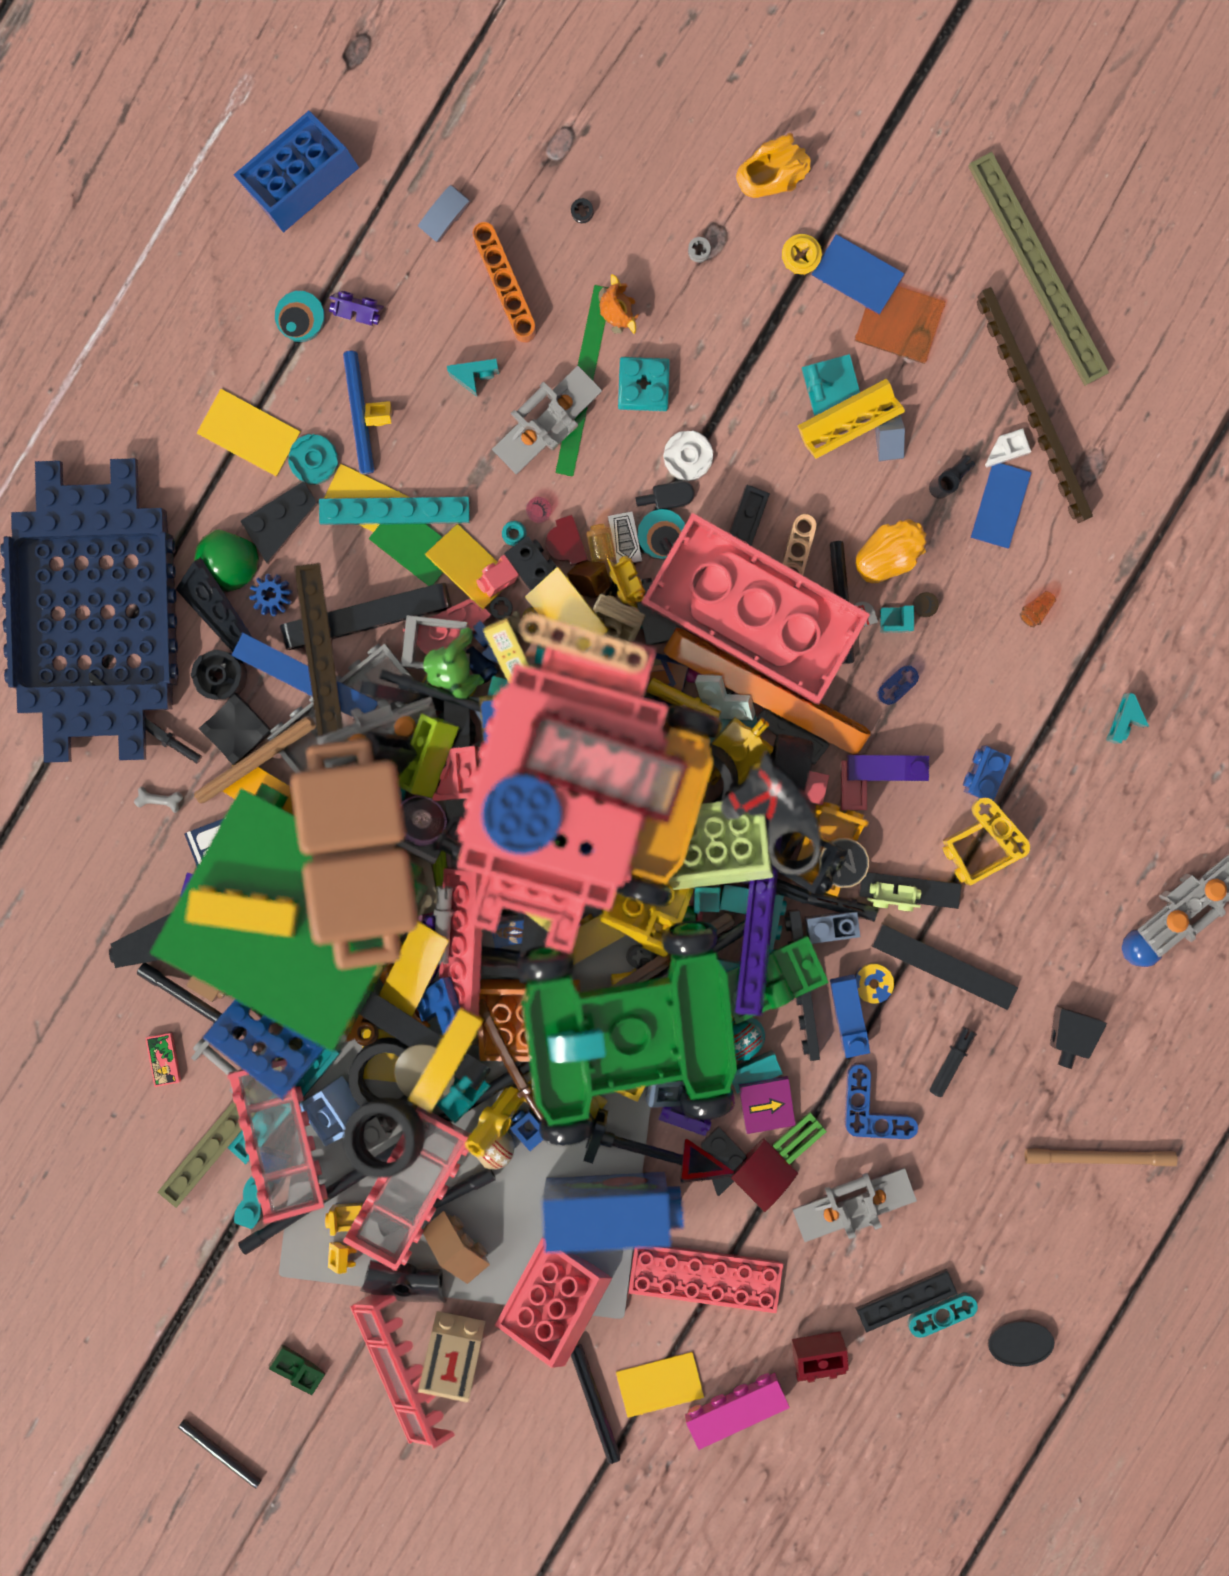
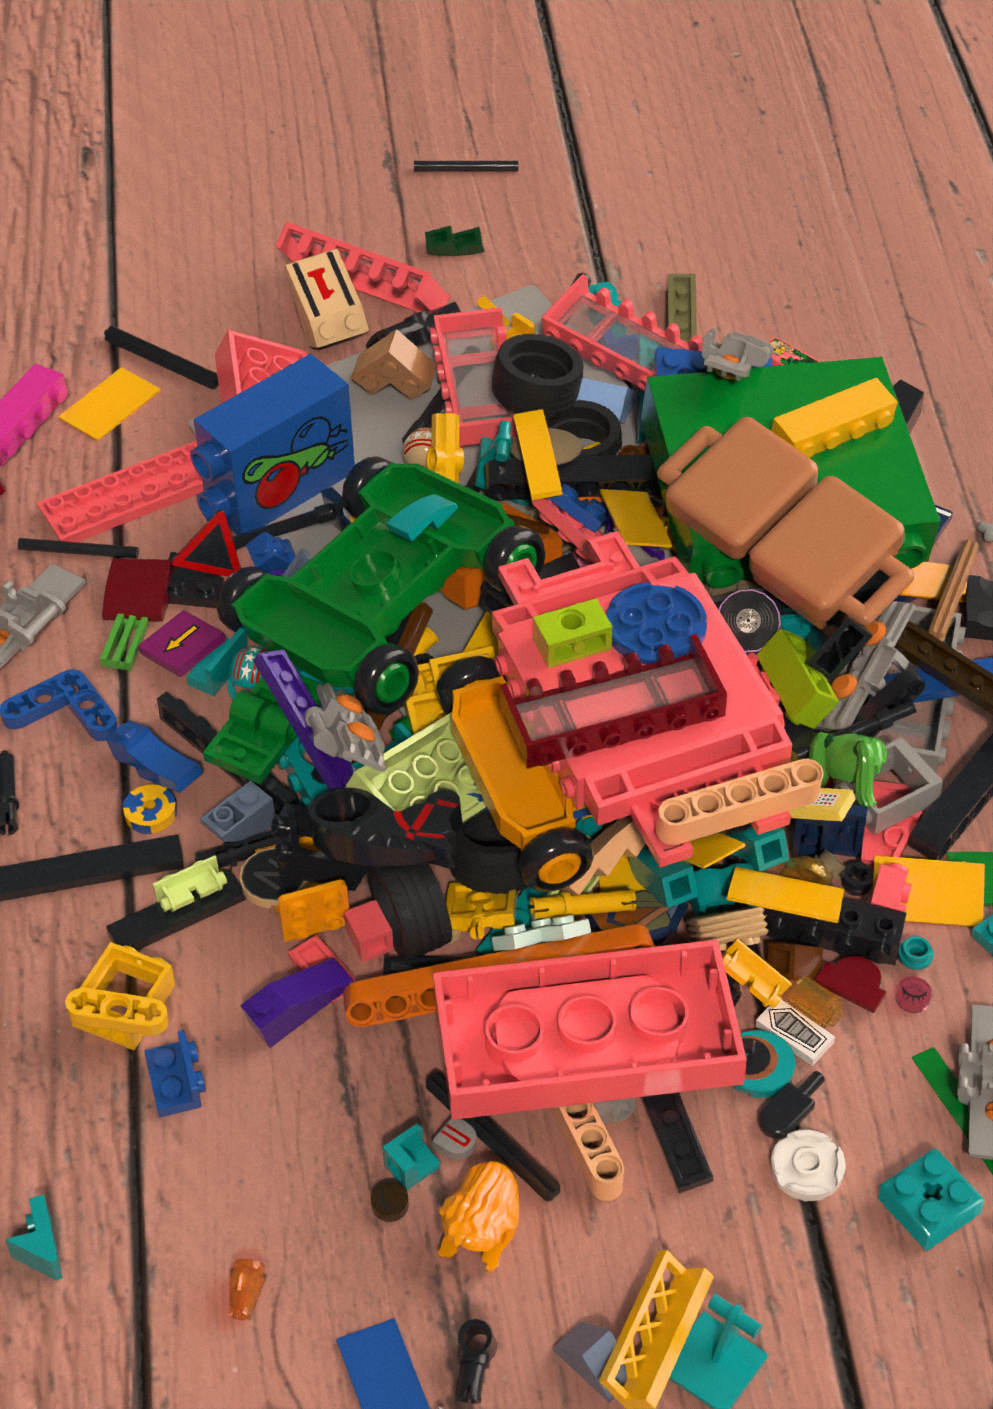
camera: 140 degrees right, 40 degrees down
(263, 1027) = (735, 354): none -> light grey piece
(572, 830) = (572, 633): none -> lime brick
(660, 1134) = (270, 552): none -> blue brick
(735, 910) = (345, 729): none -> light grey piece
(761, 1237) = (78, 548): none -> black piece
(901, 690) = (361, 1097): clear blue beam -> none

